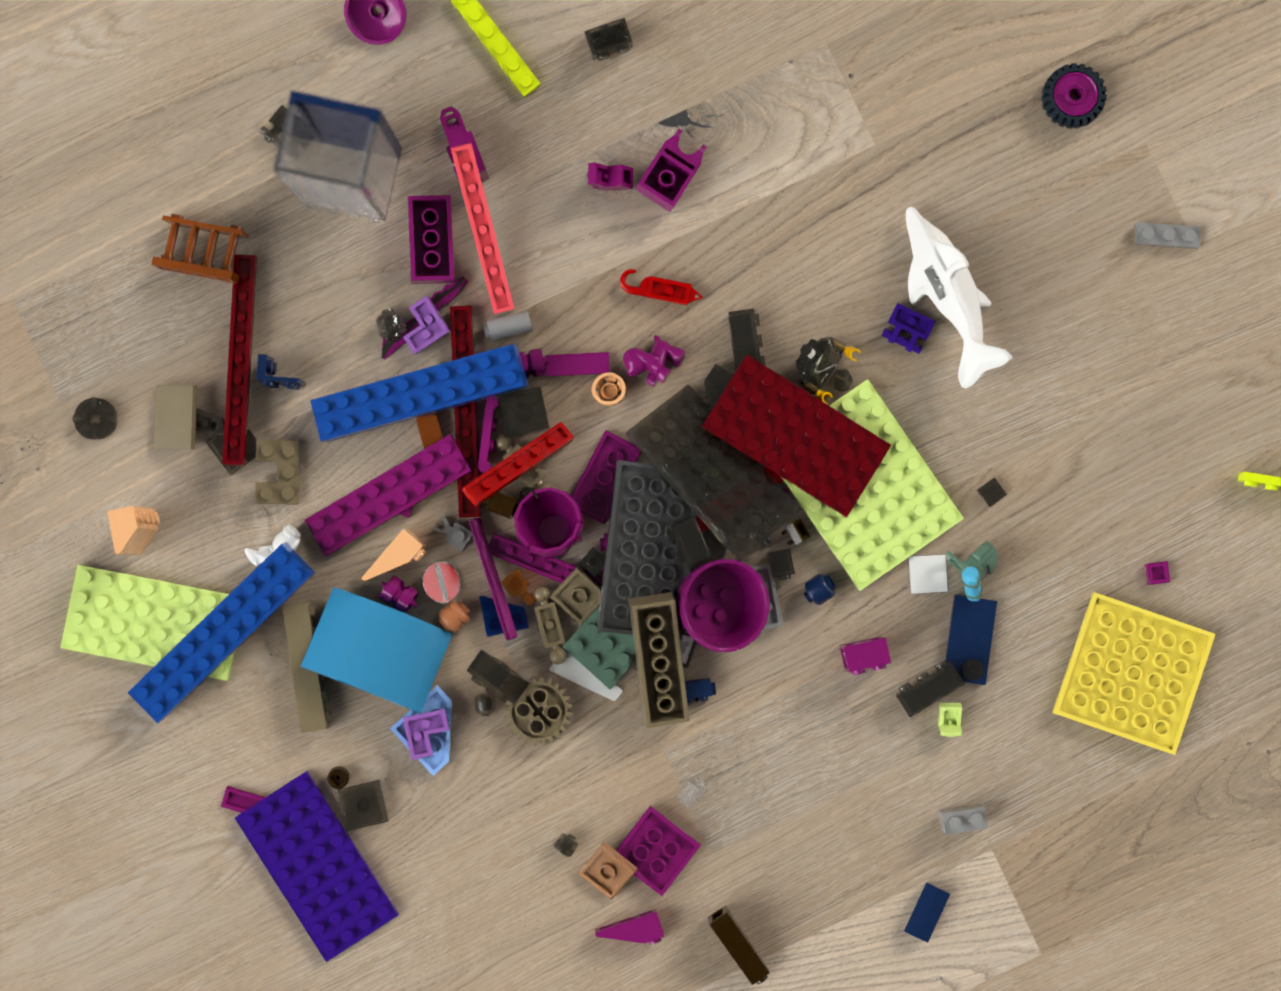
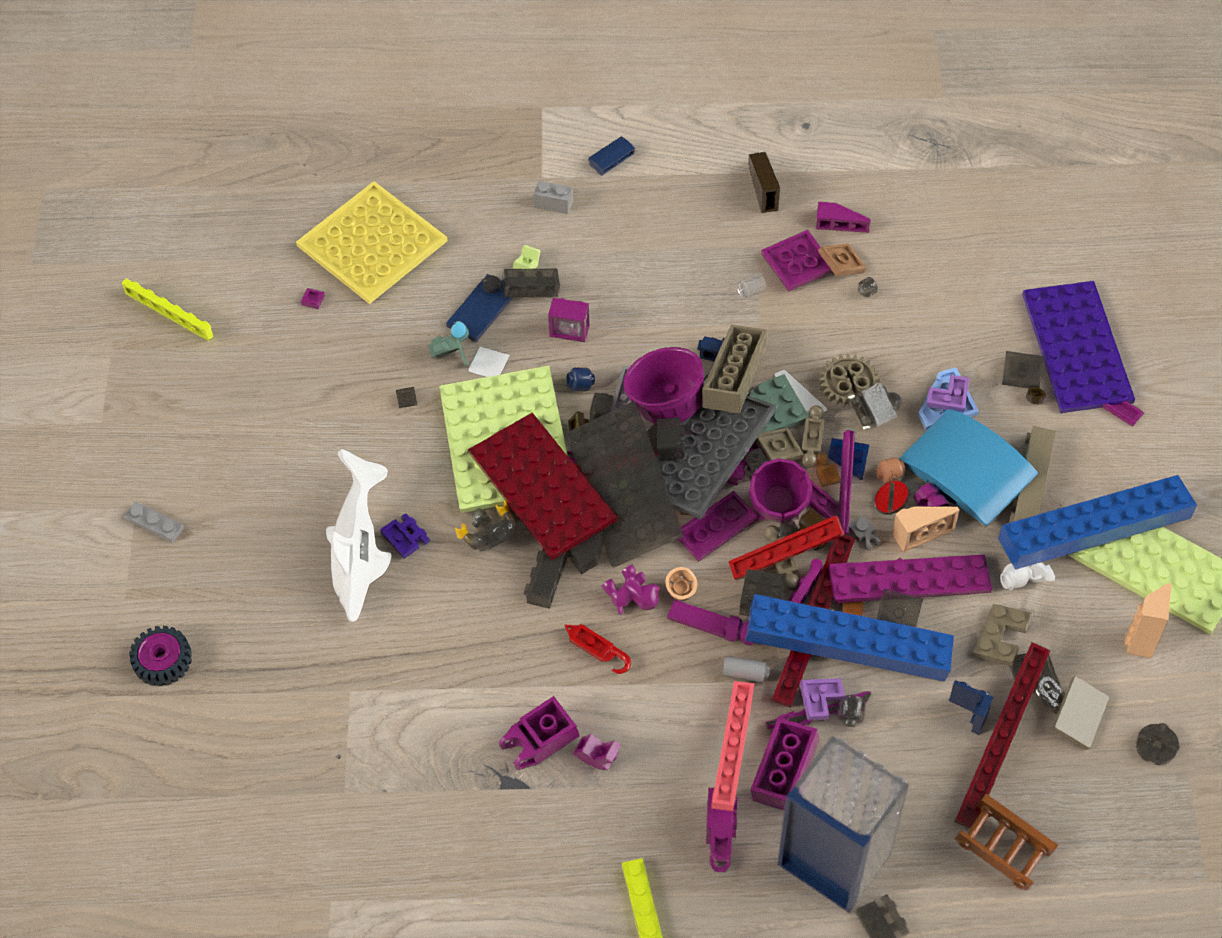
camera: 155 degrees left, 30 degrees down
(384, 449) = (899, 608): none -> clear smoke plate
(609, 39) = (539, 873): clear smoke brick -> none

